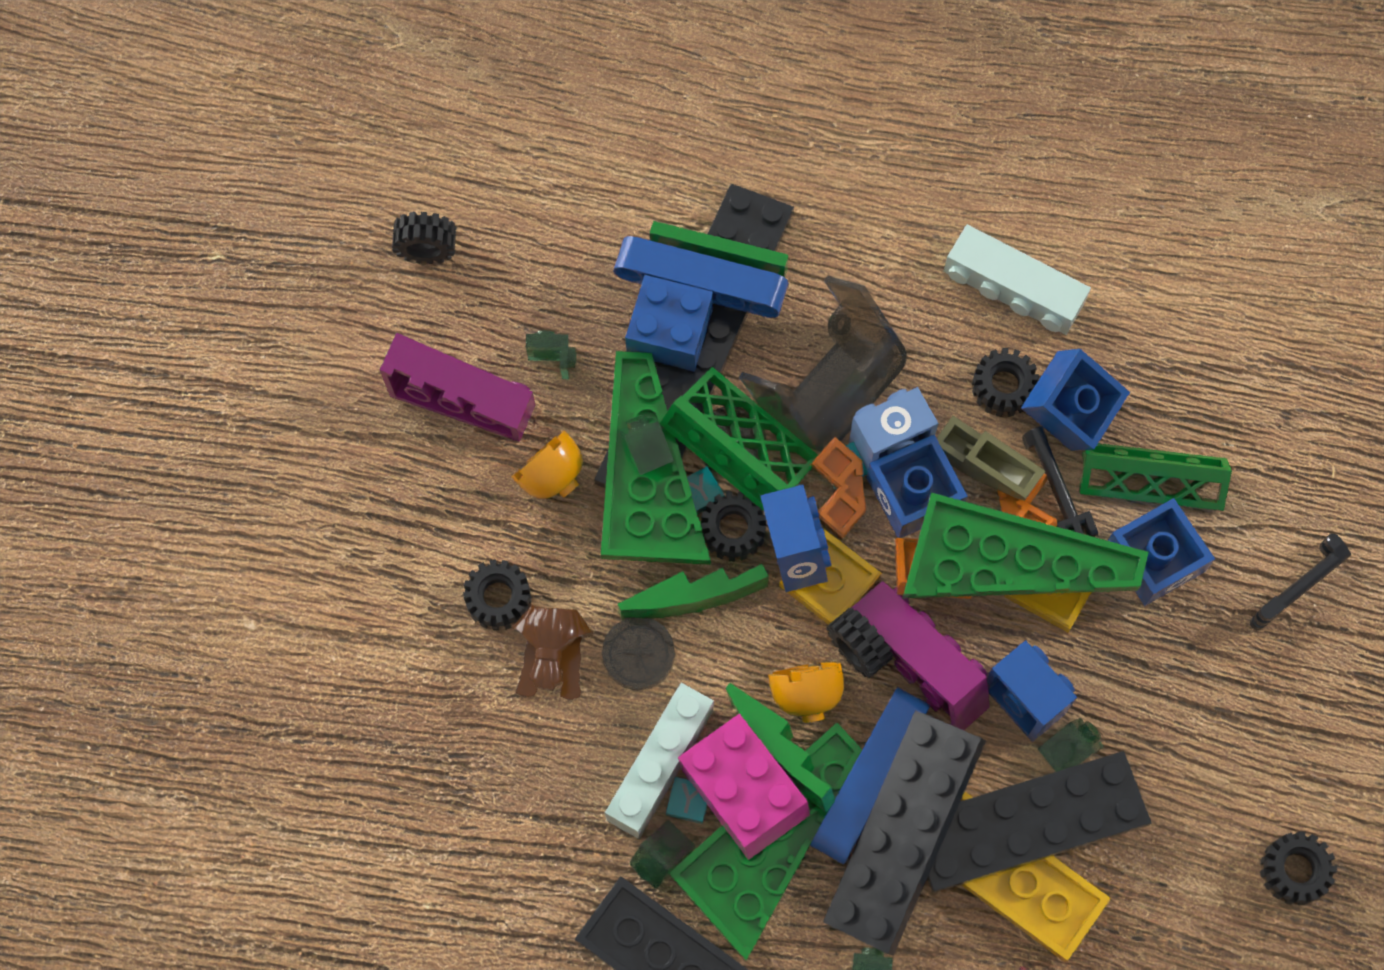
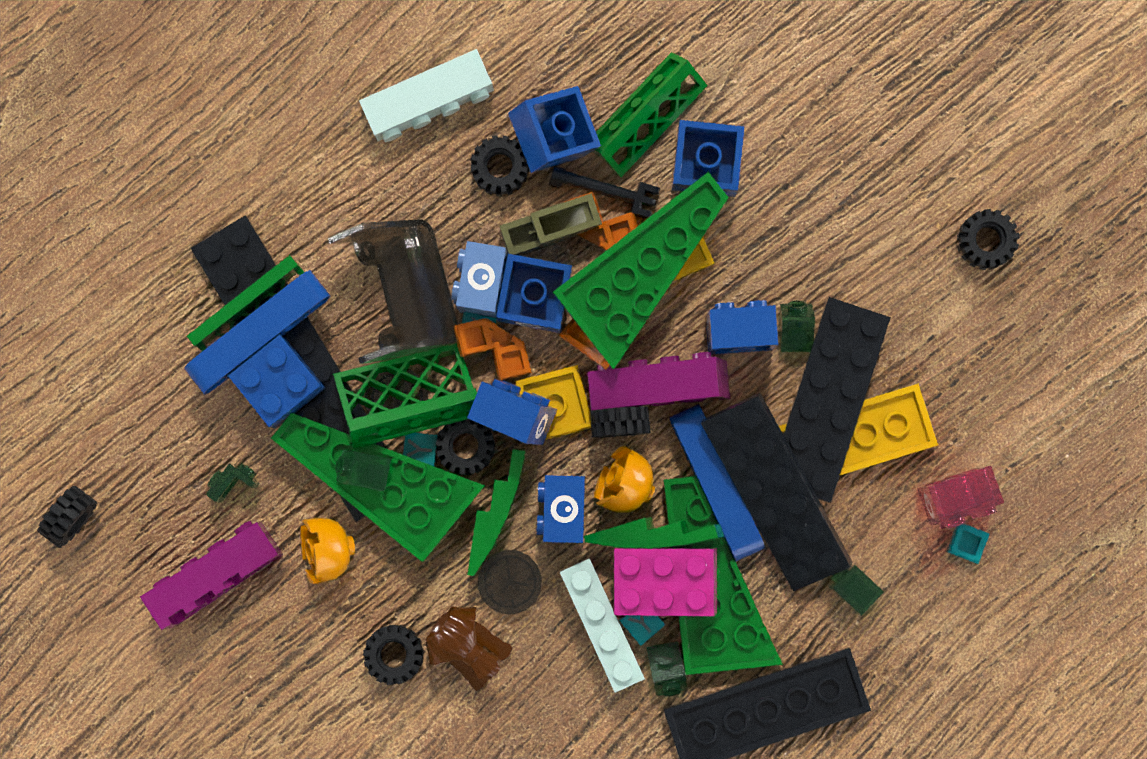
camera: 50 degrees left, 15 degrees up
(741, 645) = (562, 509): none -> blue brick
(1335, 552) = (796, 32): black hinge -> none

